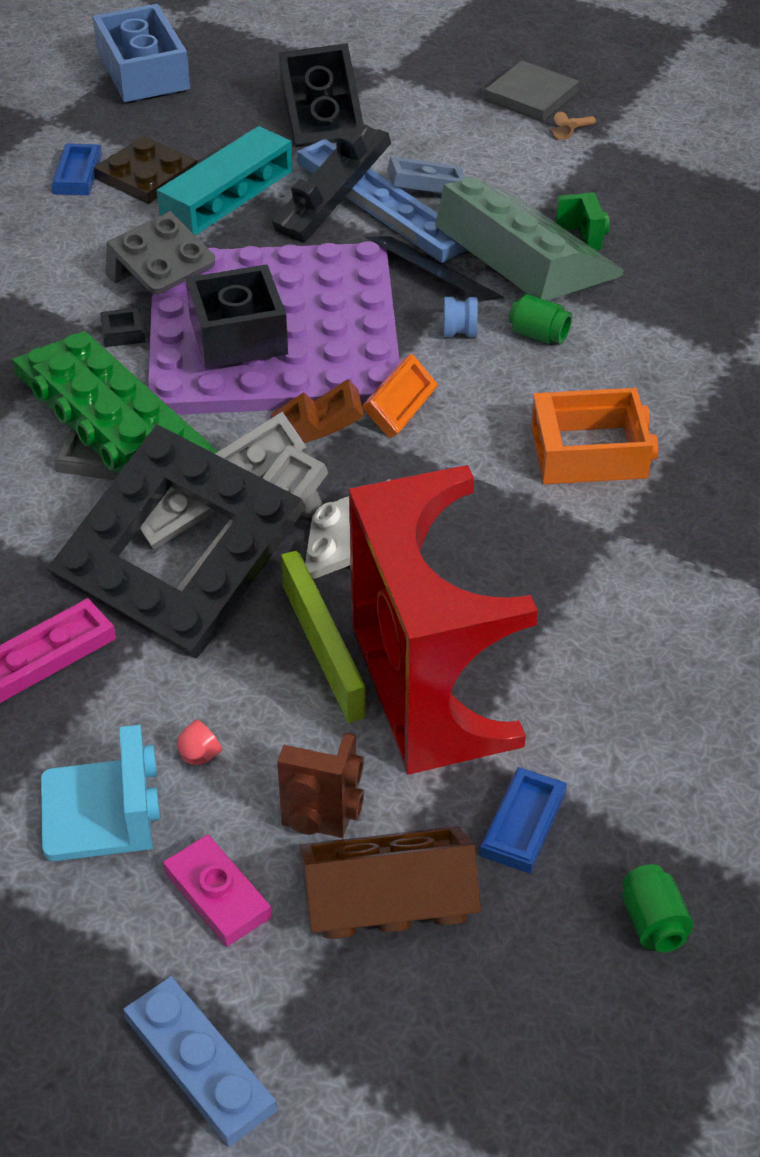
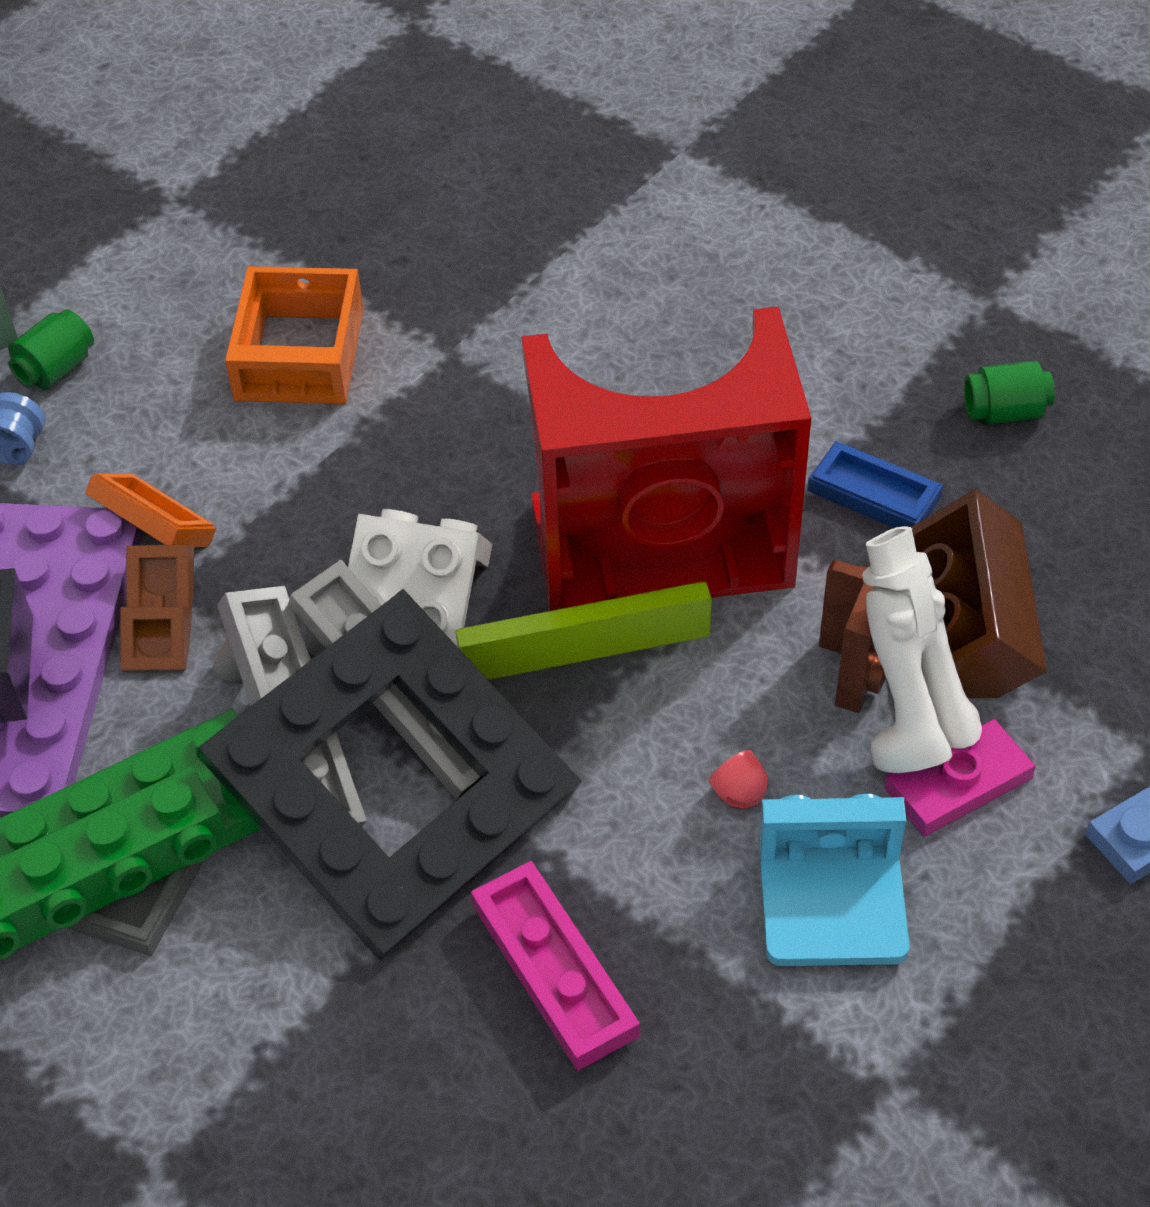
camera: 80 degrees left, 5 degrees up
(290, 778) = (915, 654): none -> white piece

